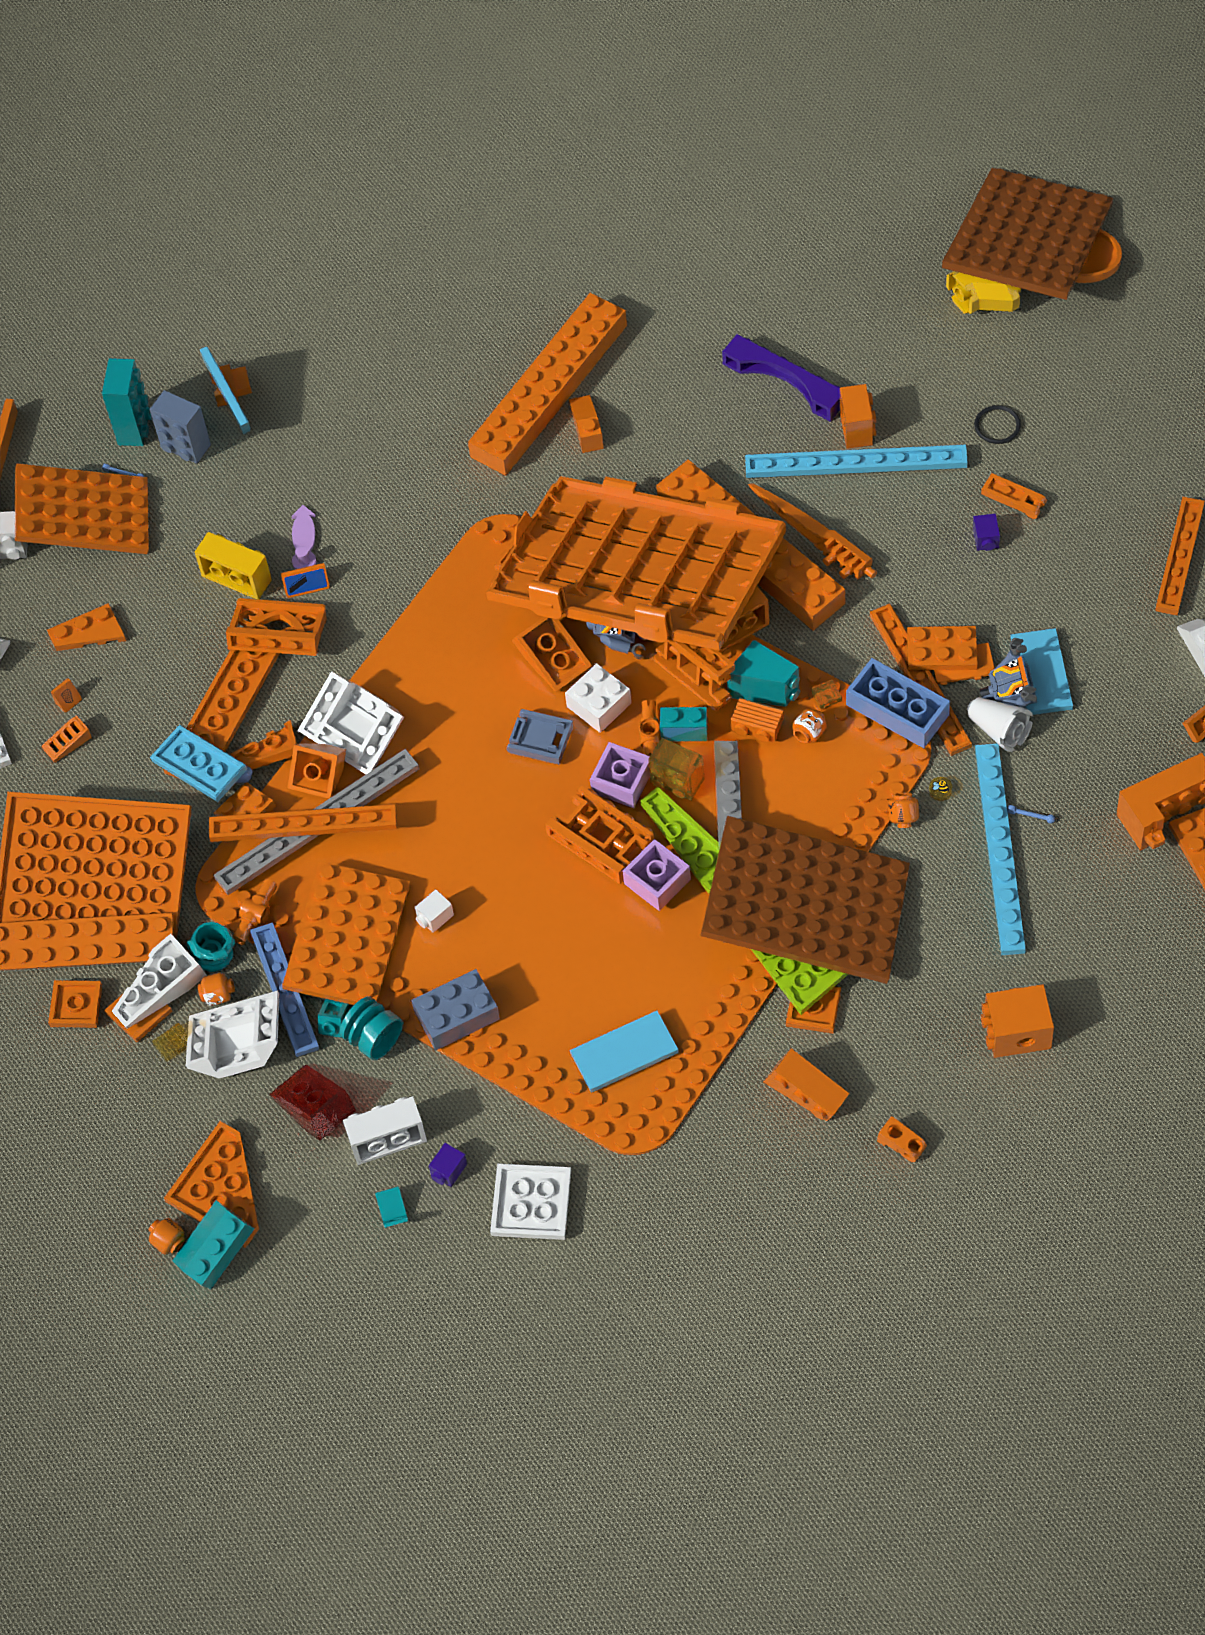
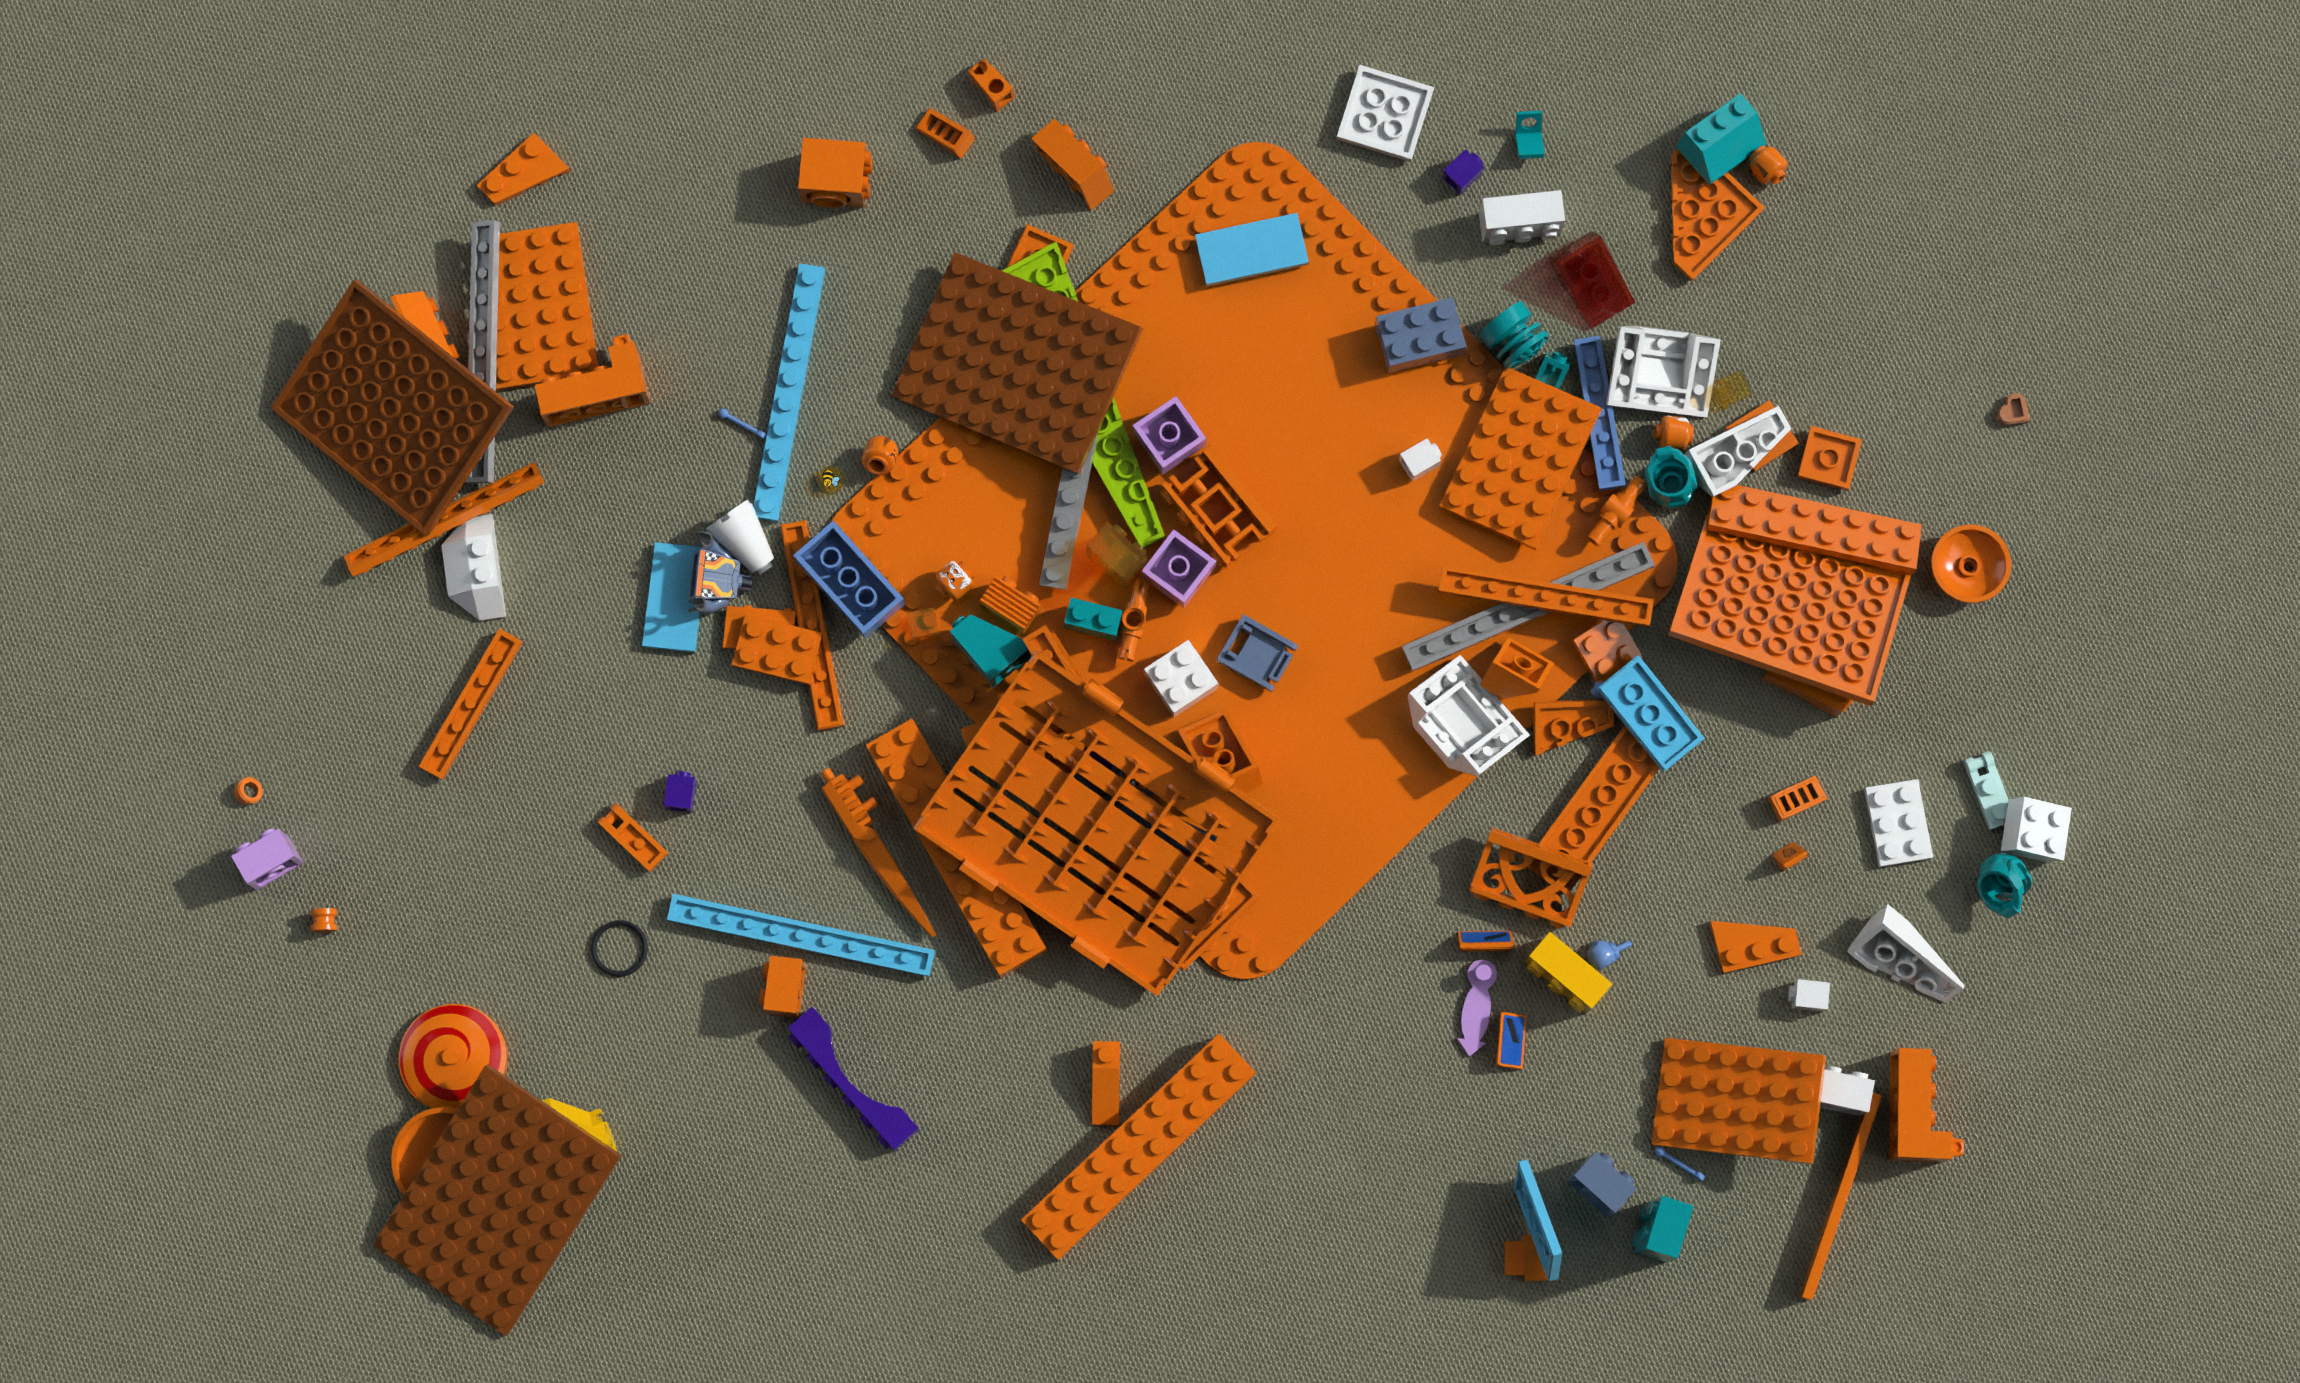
camera: 175 degrees left, 20 degrees up
(36, 601) = (1809, 995): none -> white brick
(207, 594) = (1603, 953): none -> medium blue piece
(272, 521) = (1511, 1040): none -> slope
(928, 1098) = (959, 141): none -> orange slope
(1099, 325) = (447, 1053): none -> orange dish

